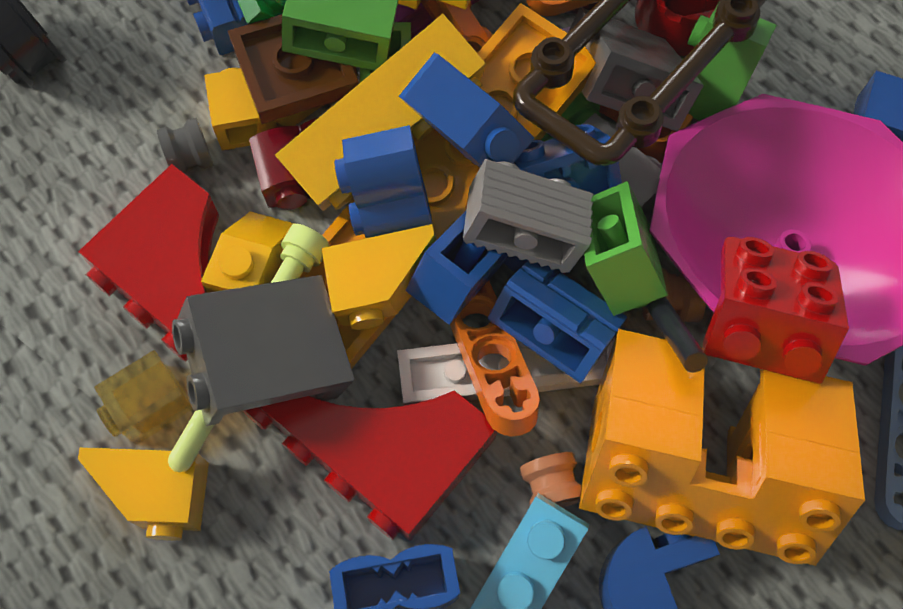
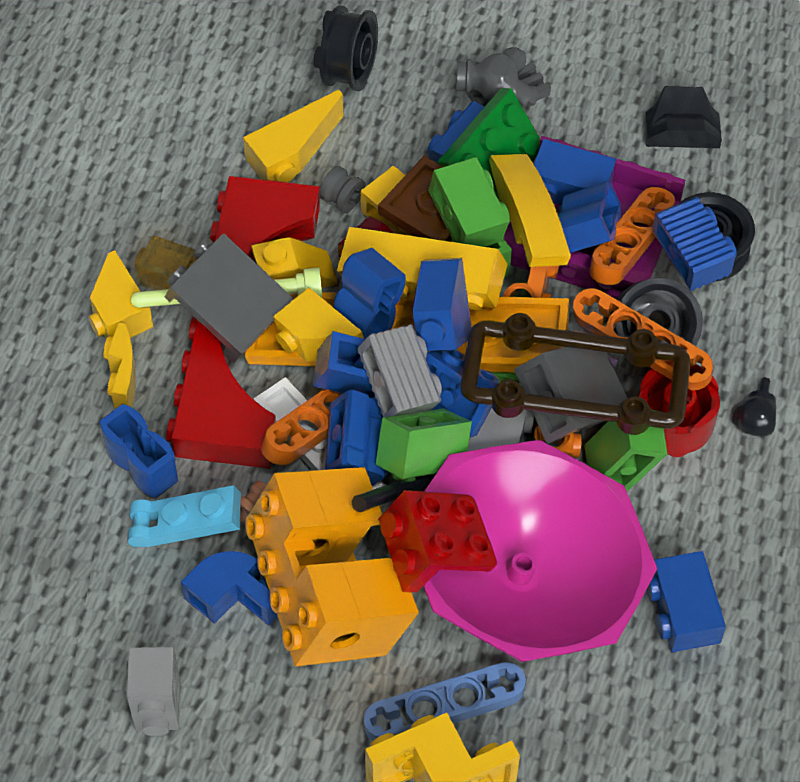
camera: 60 degrees right, 10 degrees down
(76, 172) = (289, 143): none -> yellow slope
(238, 529) = (122, 367): none -> yellow slope

